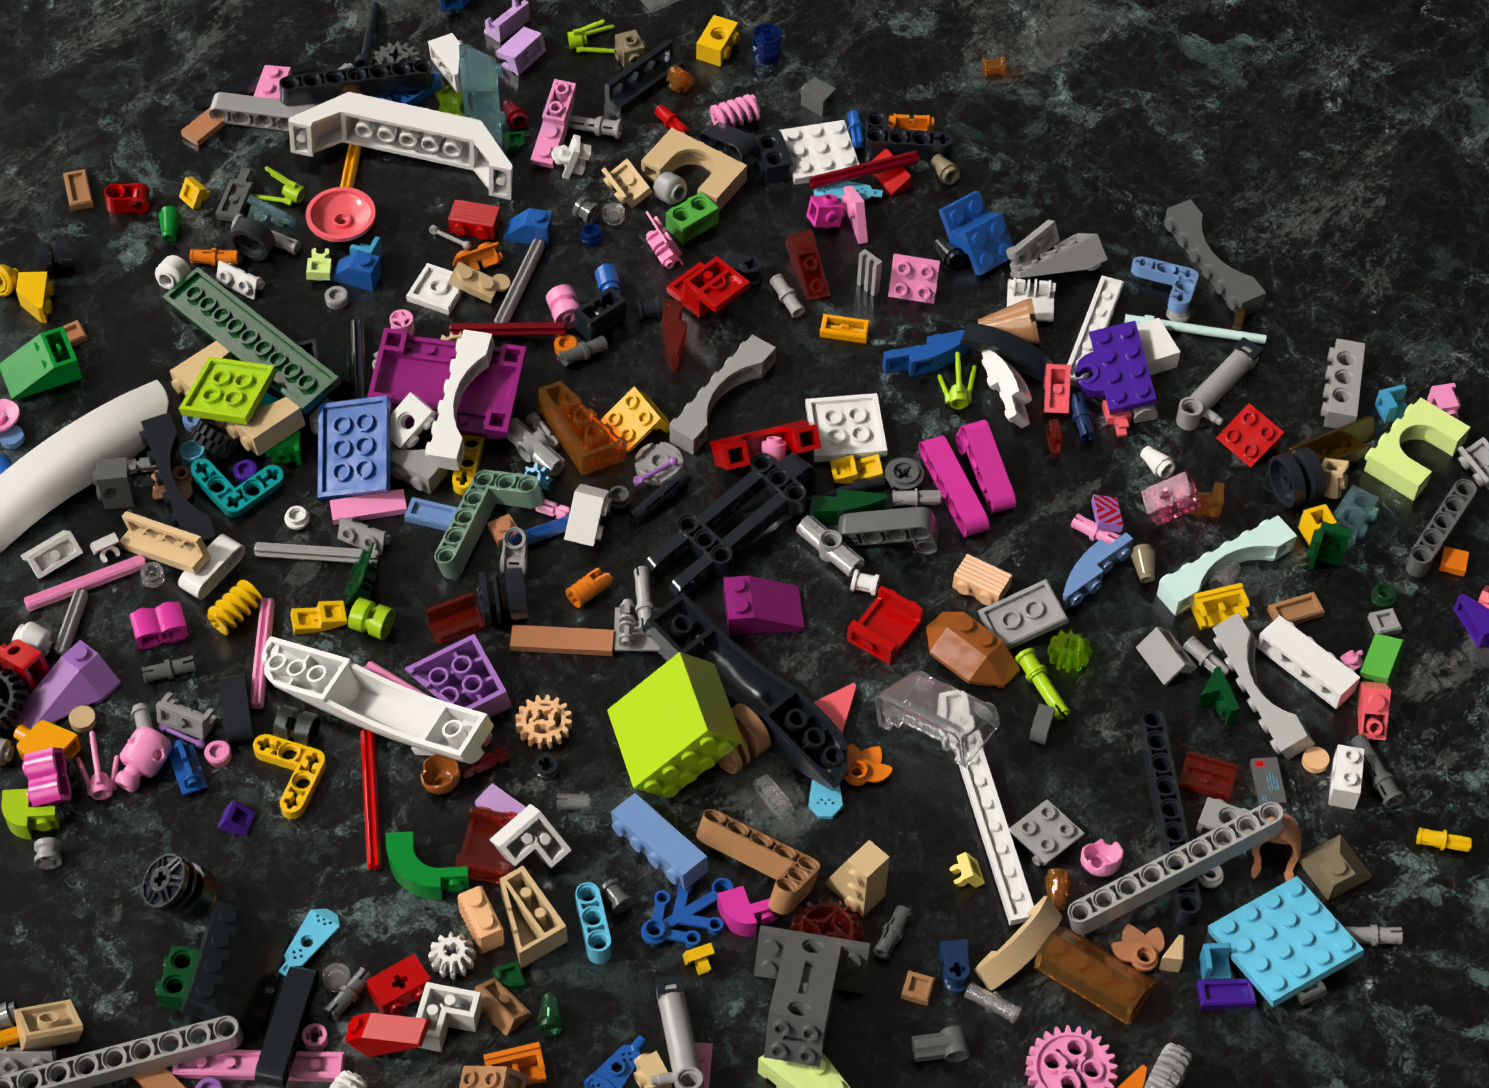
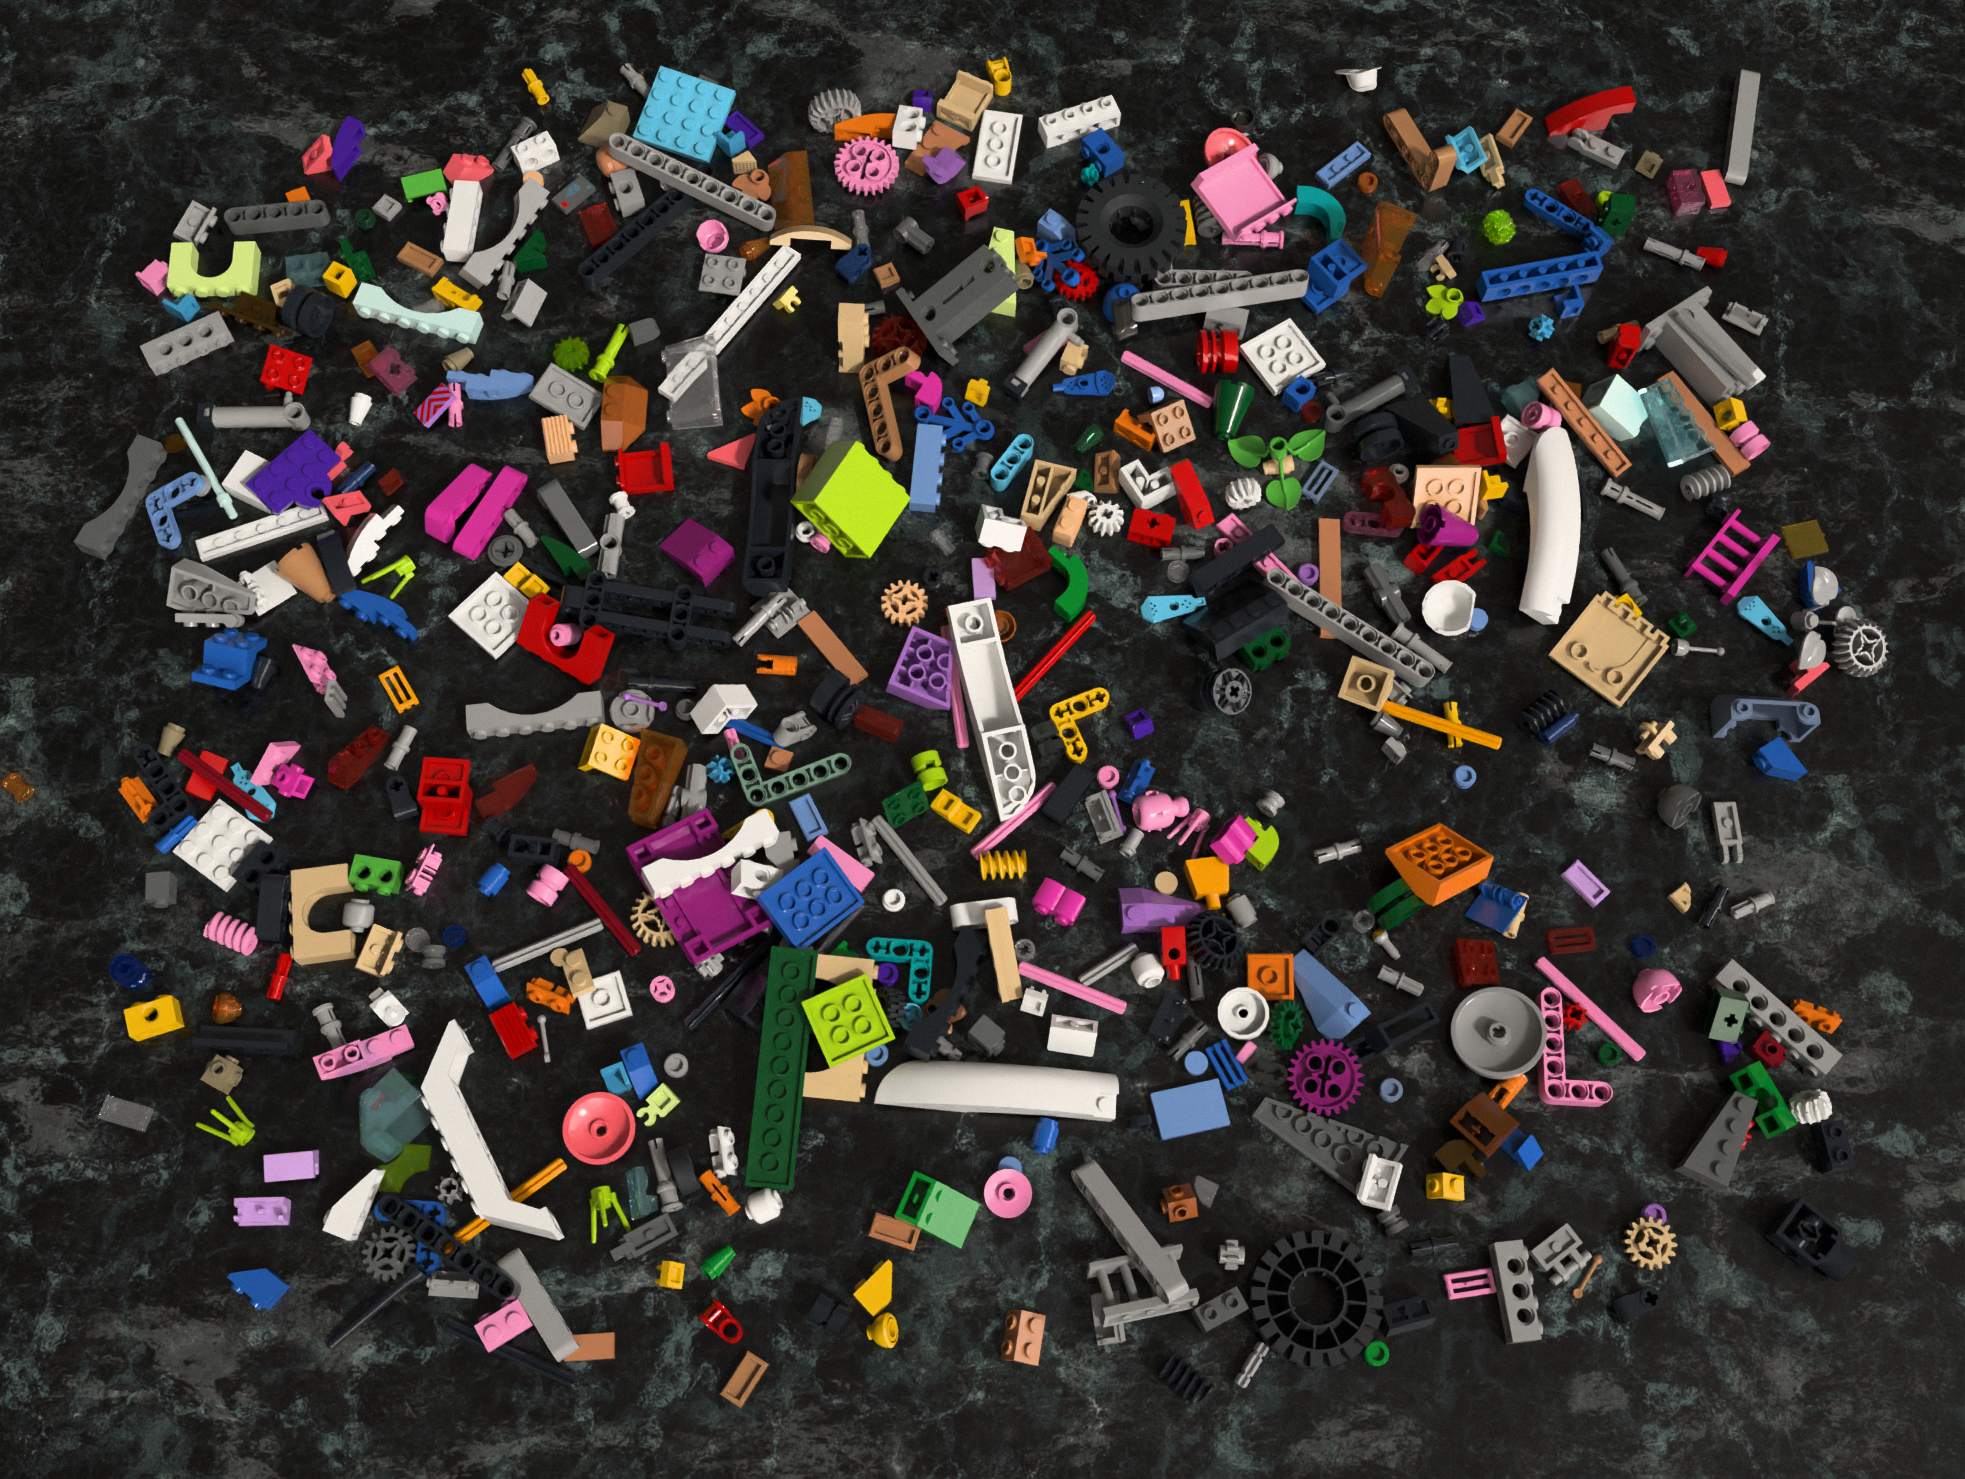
camera: 135 degrees left, 15 degrees up
(488, 961) = (1091, 499): none -> white arm

